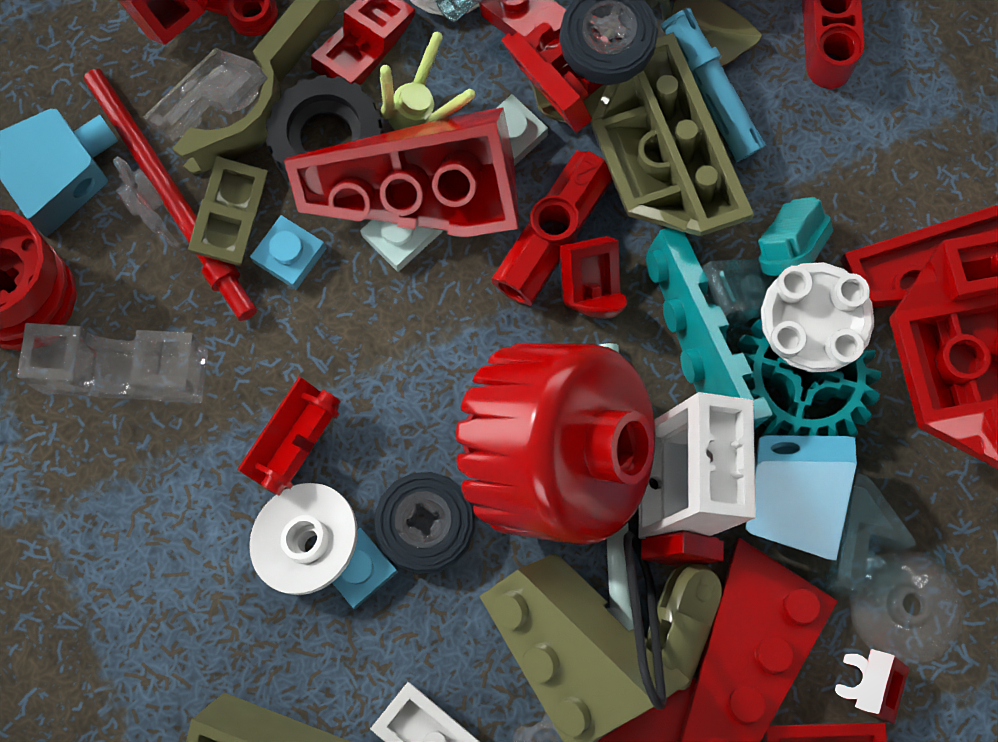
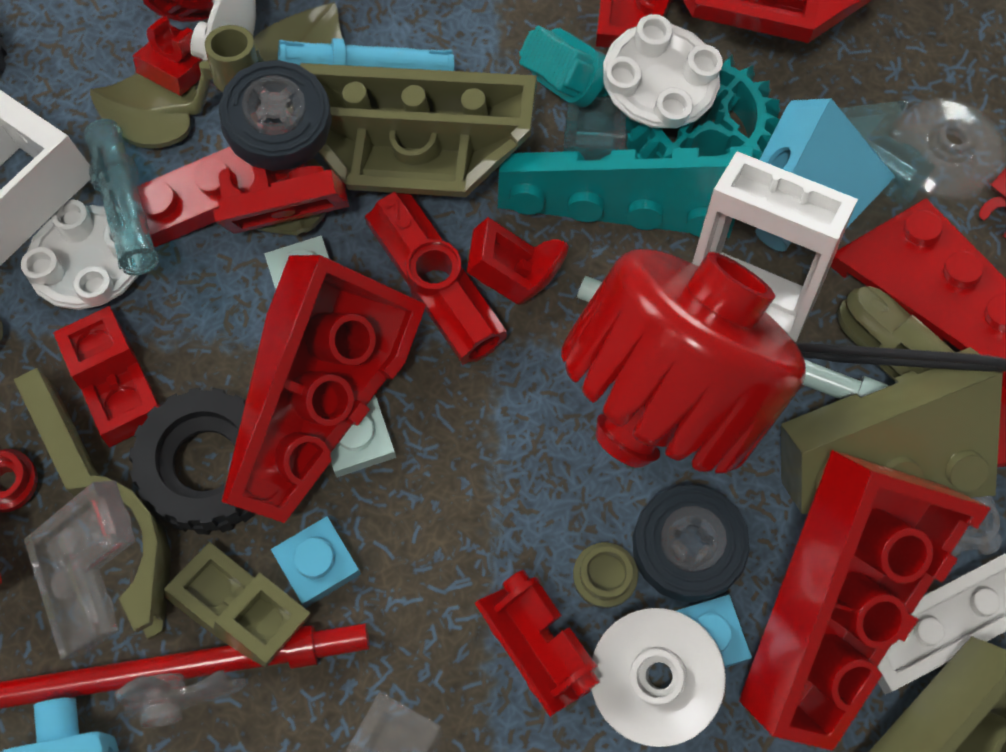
camera: 70 degrees left, 5 degrees down
(371, 468) = (605, 575): none -> olive plate
(413, 101) = (221, 350): yellowish green plant -> none
(433, 654) = (851, 594): none -> red wedge
(682, 548) = (827, 304): red tile -> none

